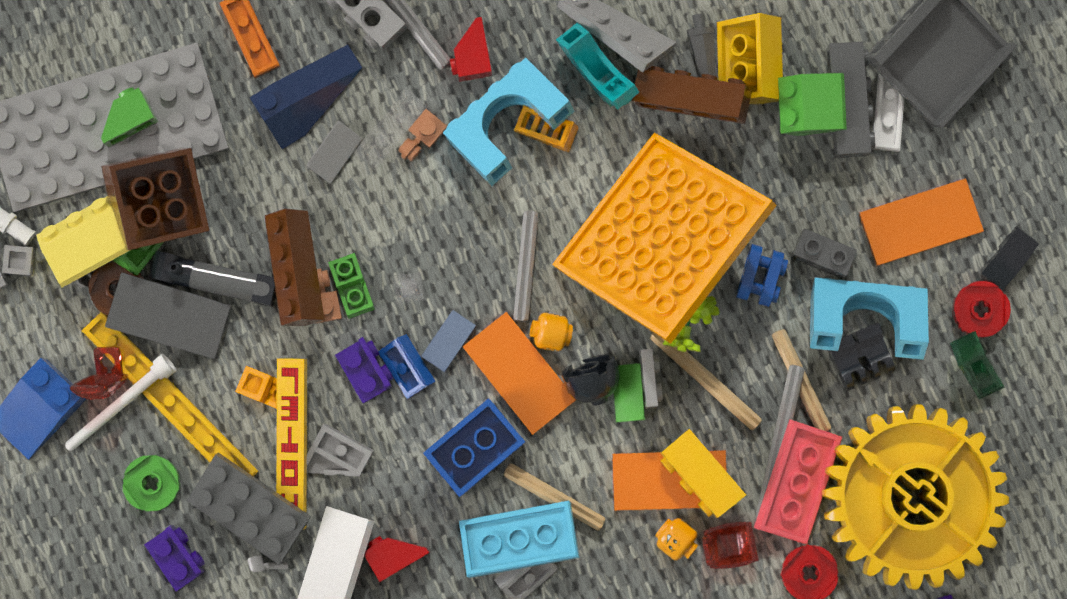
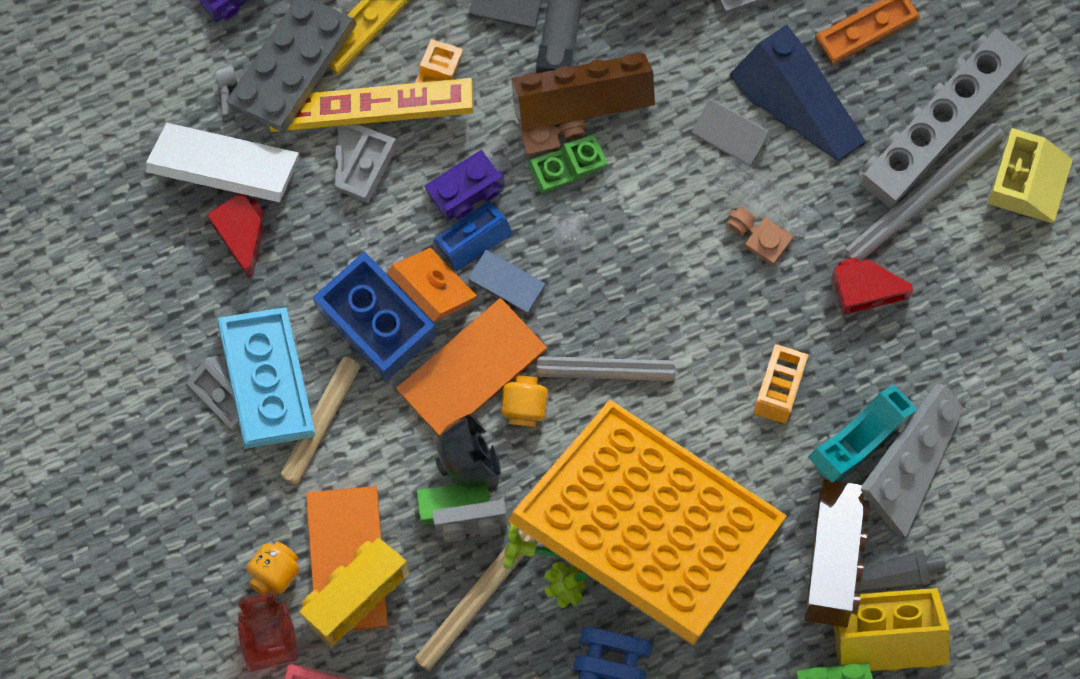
camera: 85 degrees right, 10 degrees down
(450, 400) = (431, 284): none -> orange plate
(521, 86) = (769, 290): medium azure arch -> none

